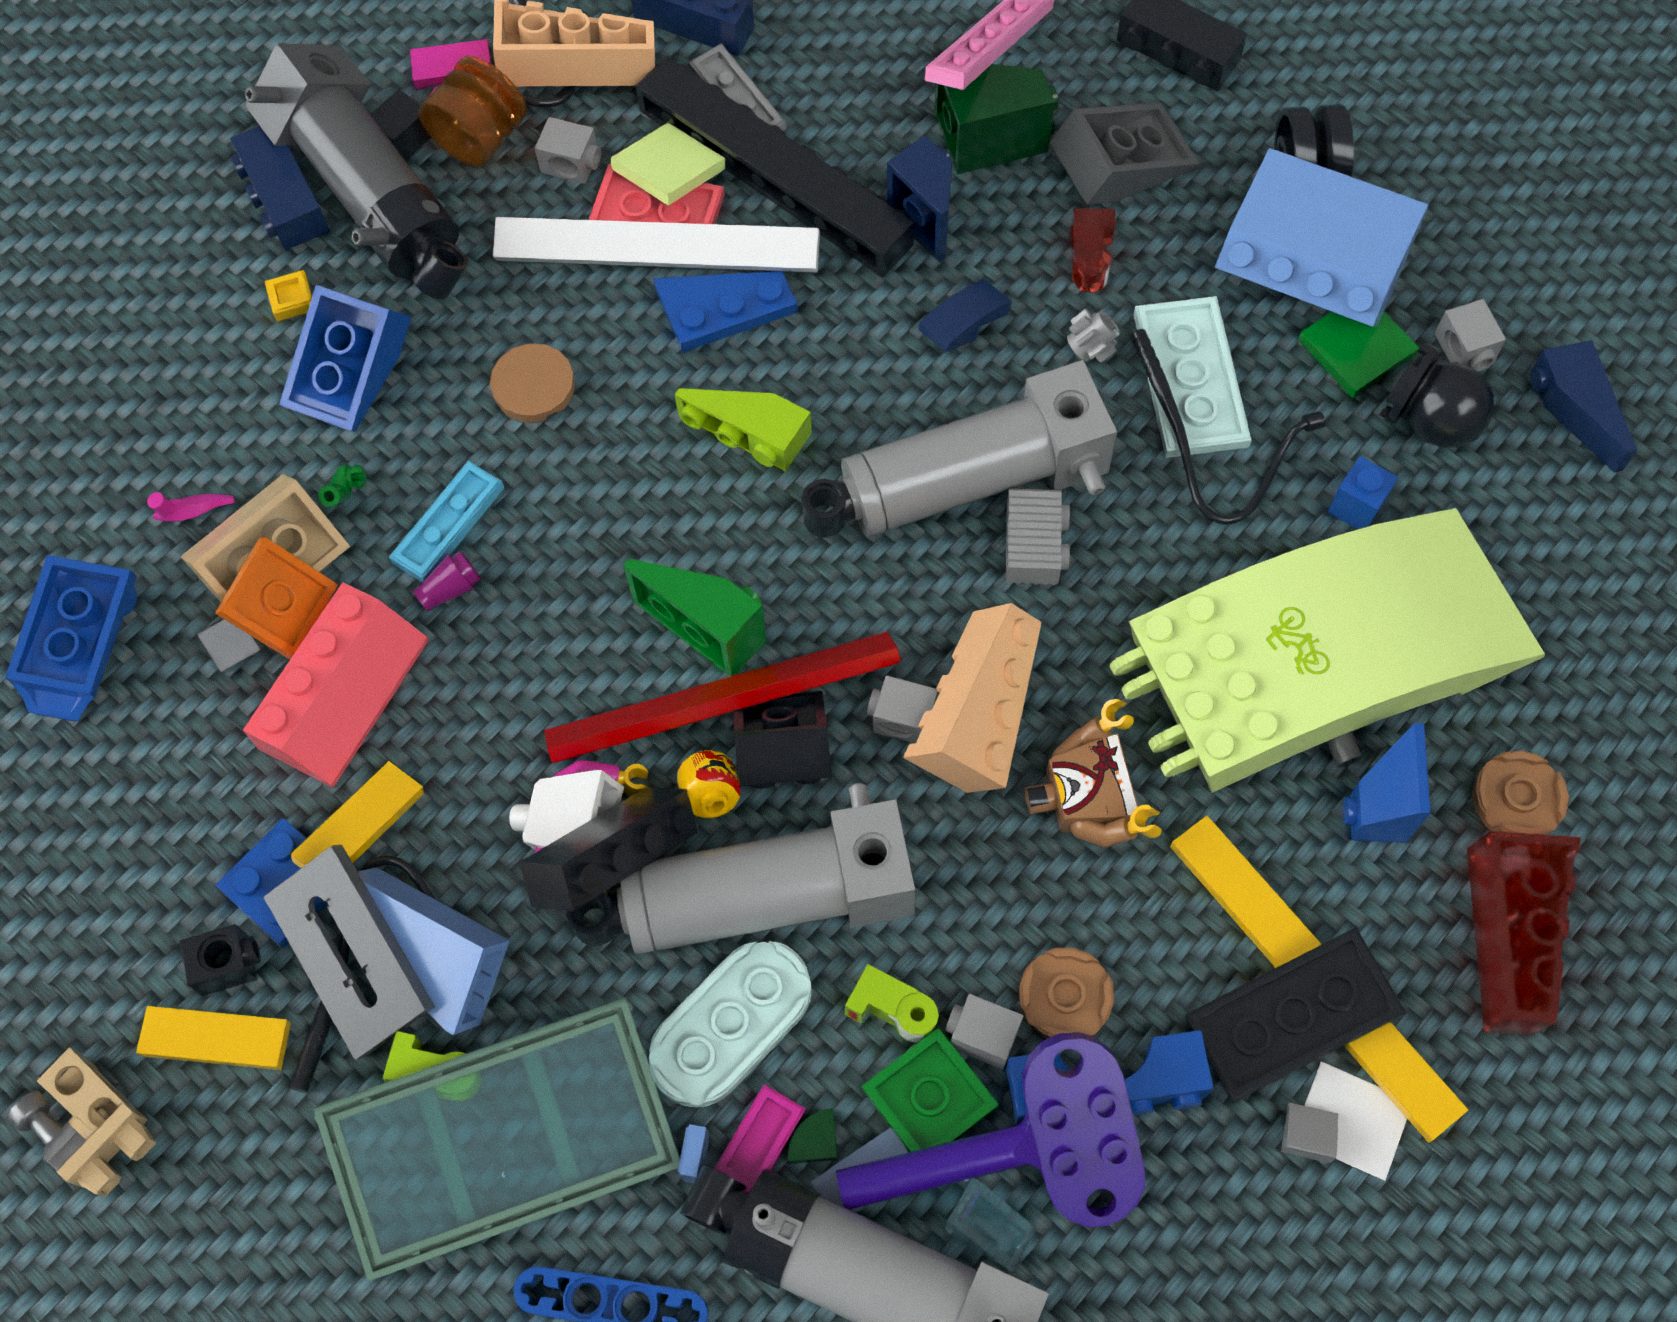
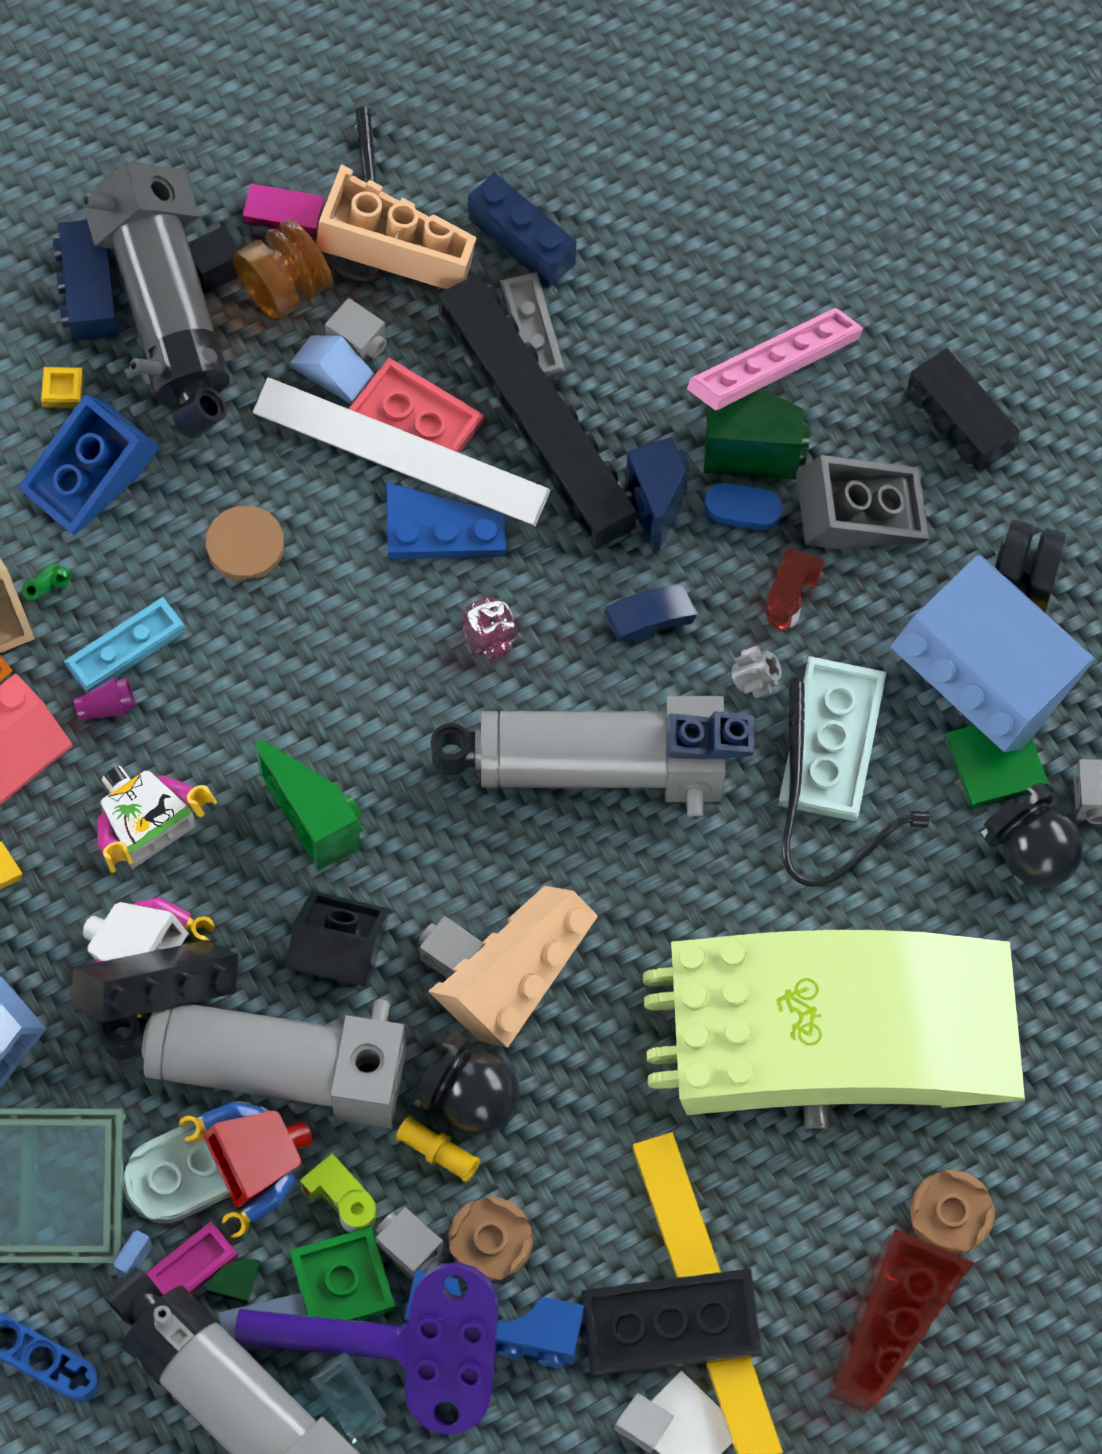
camera: 15 degrees right, 0 degrees up
(532, 681) = (145, 815): none -> torso
(556, 188) = (333, 366): none -> light blue slope
(668, 163) = (441, 376): yellowish green tile -> none
(710, 783) = (261, 955): yellow head -> none
(721, 697) = (301, 884): red tile -> none
(753, 421) = (426, 649): lime slope -> none
(784, 997) = (252, 1155): none -> torso
(812, 380) = (489, 627): none -> clear pink head
(973, 919) = (438, 1148): none -> yellow pin
(989, 844) = (473, 1090): none -> black tile
(1010, 190) = (743, 506): none -> blue tile
(1034, 536) = (627, 837): light grey brick -> none
(1093, 785) = (583, 1071): torso -> none
(1094, 400) = (710, 737): none -> dark blue slope
(1362, 494) = (932, 900): blue brick -> none
(1393, 794) = (830, 1167): blue slope -> none

